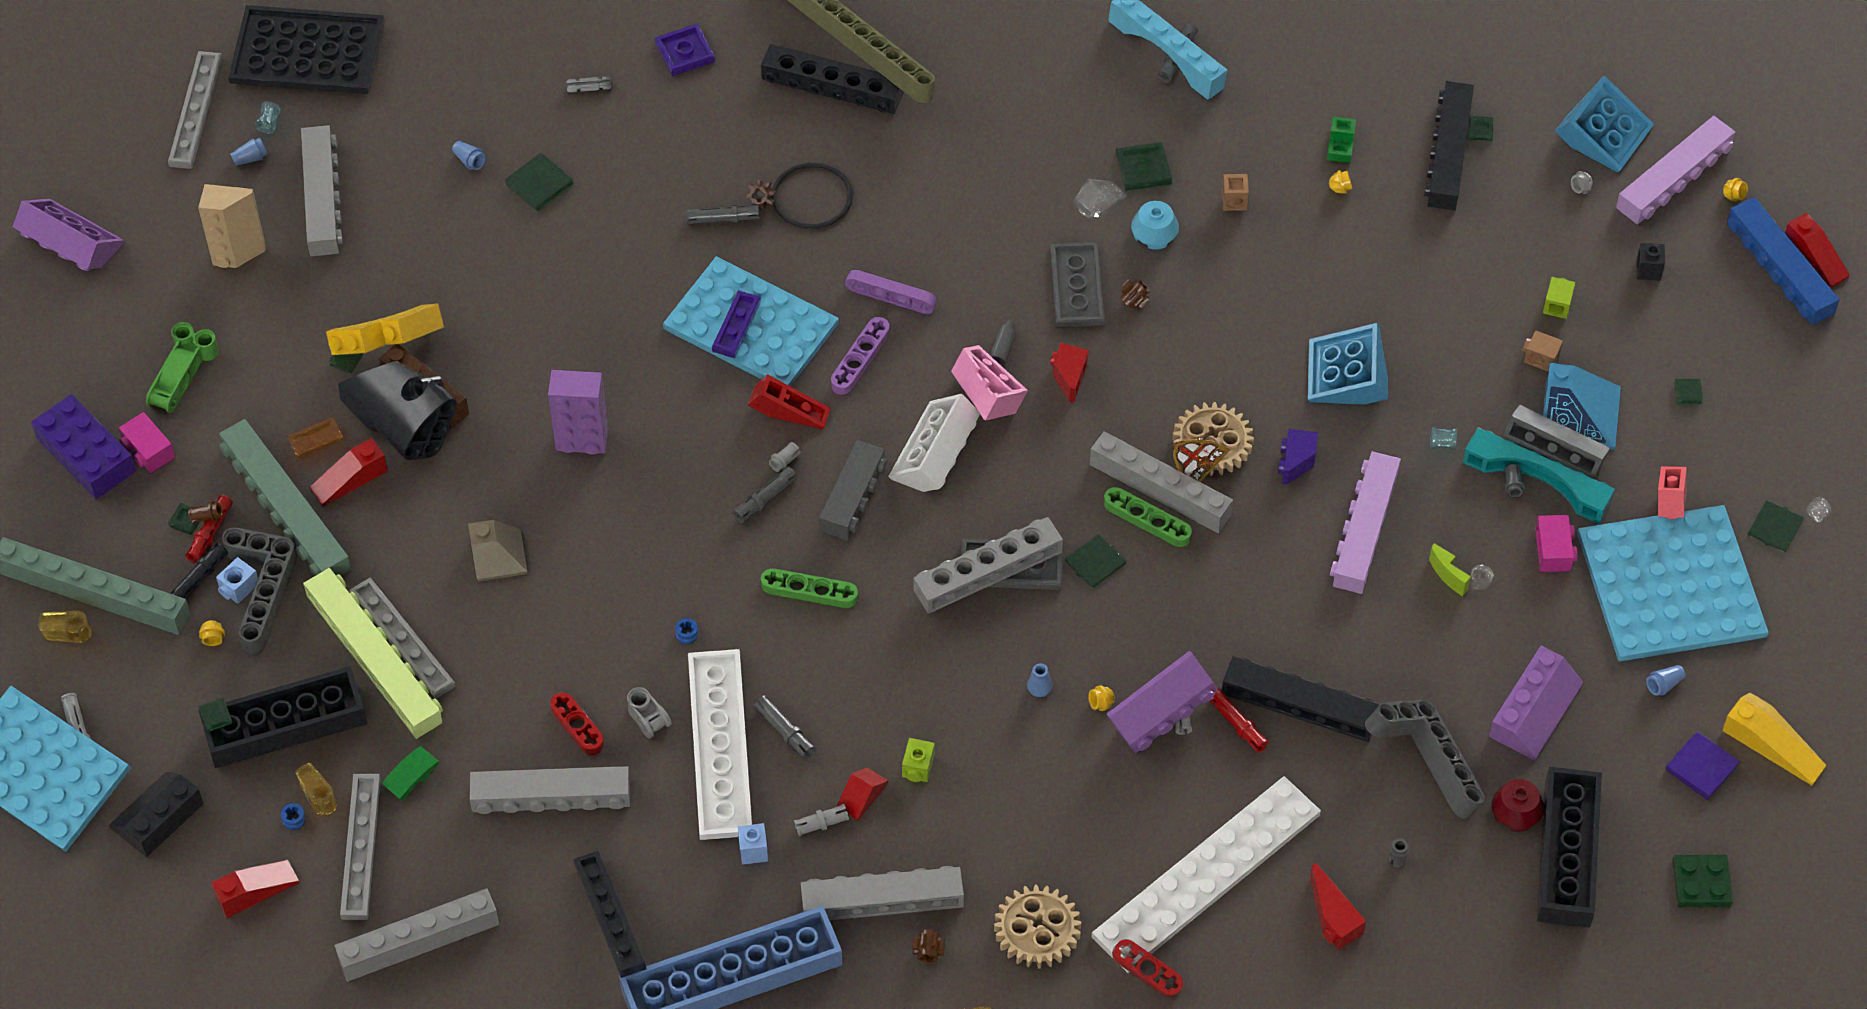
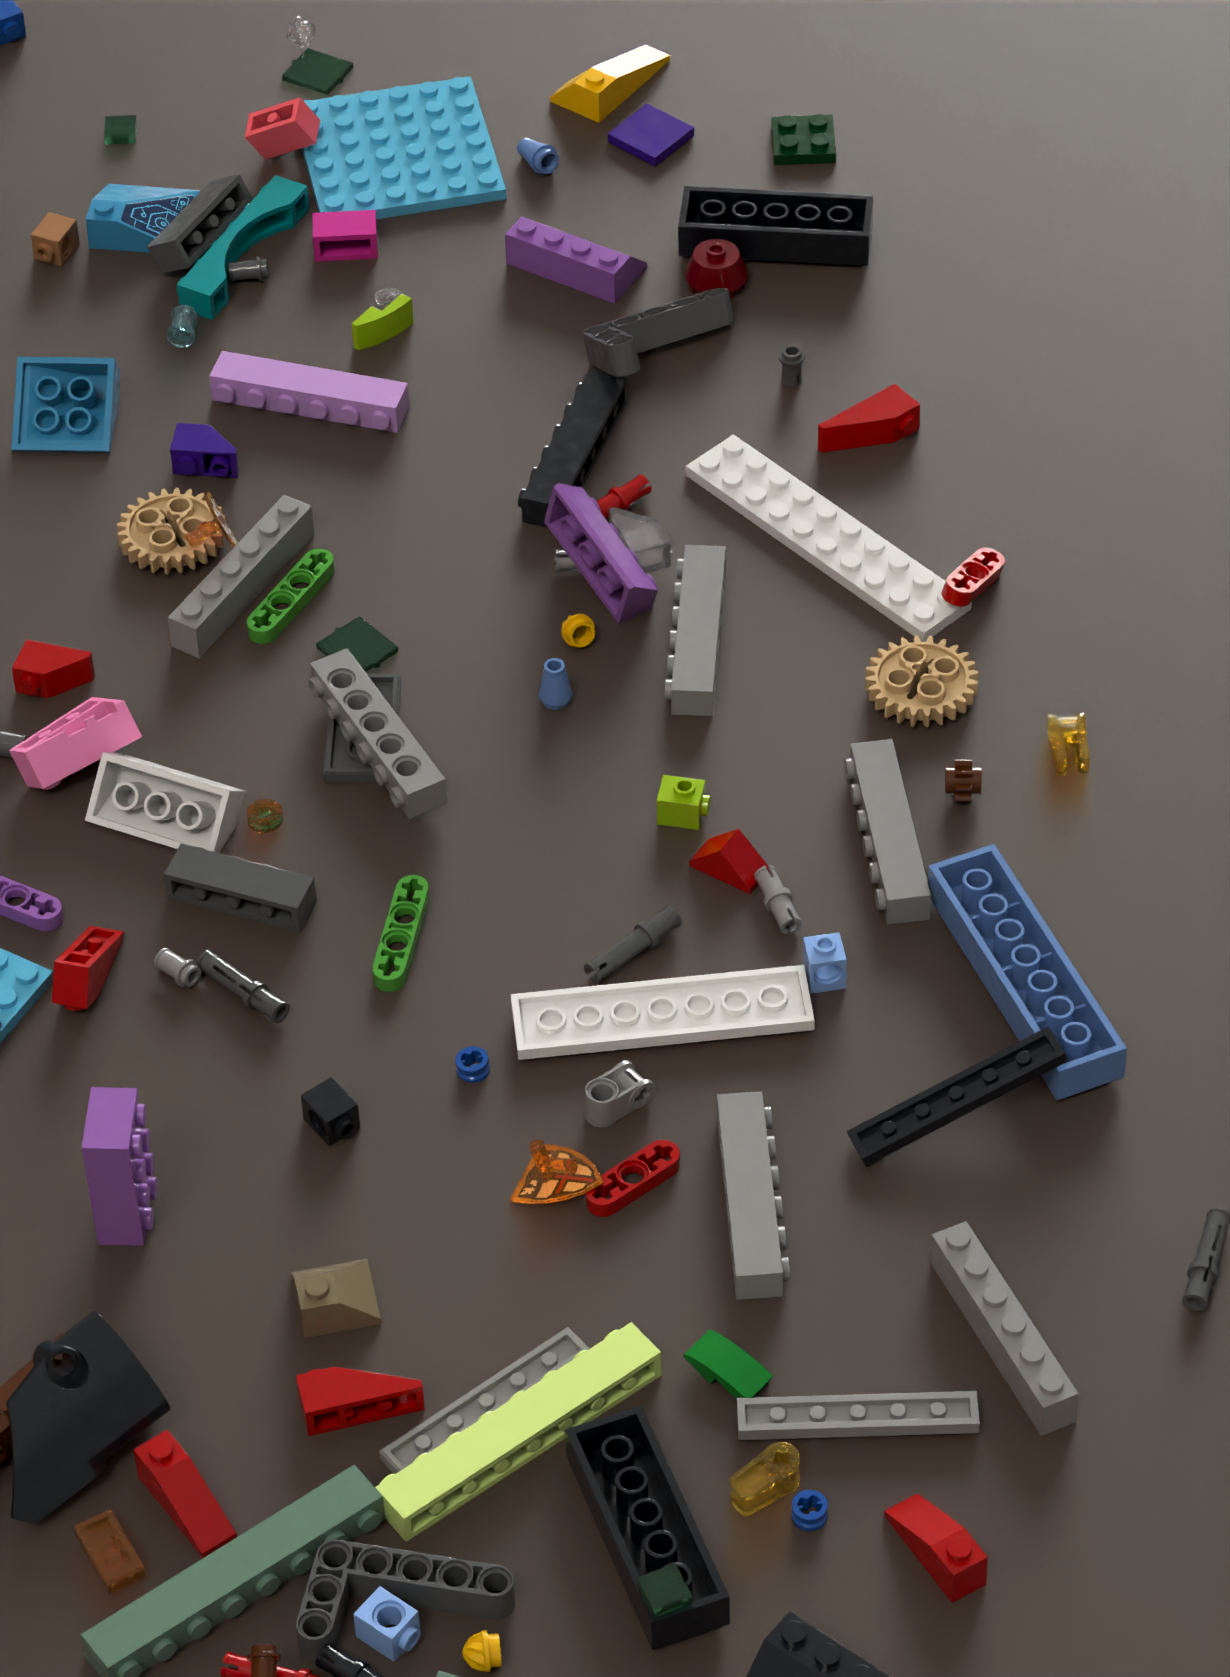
camera: 90 degrees left, 10 degrees down
(411, 557) = (350, 1397): none -> red slope
(582, 677) = (555, 1175): none -> clear orange shield
(646, 545) = (330, 1111): none -> black brick
(927, 506) = (264, 815): none -> clear orange tile
(1098, 777) = (697, 632): none -> light grey brick
(1194, 740) = (644, 538): none -> clear slope

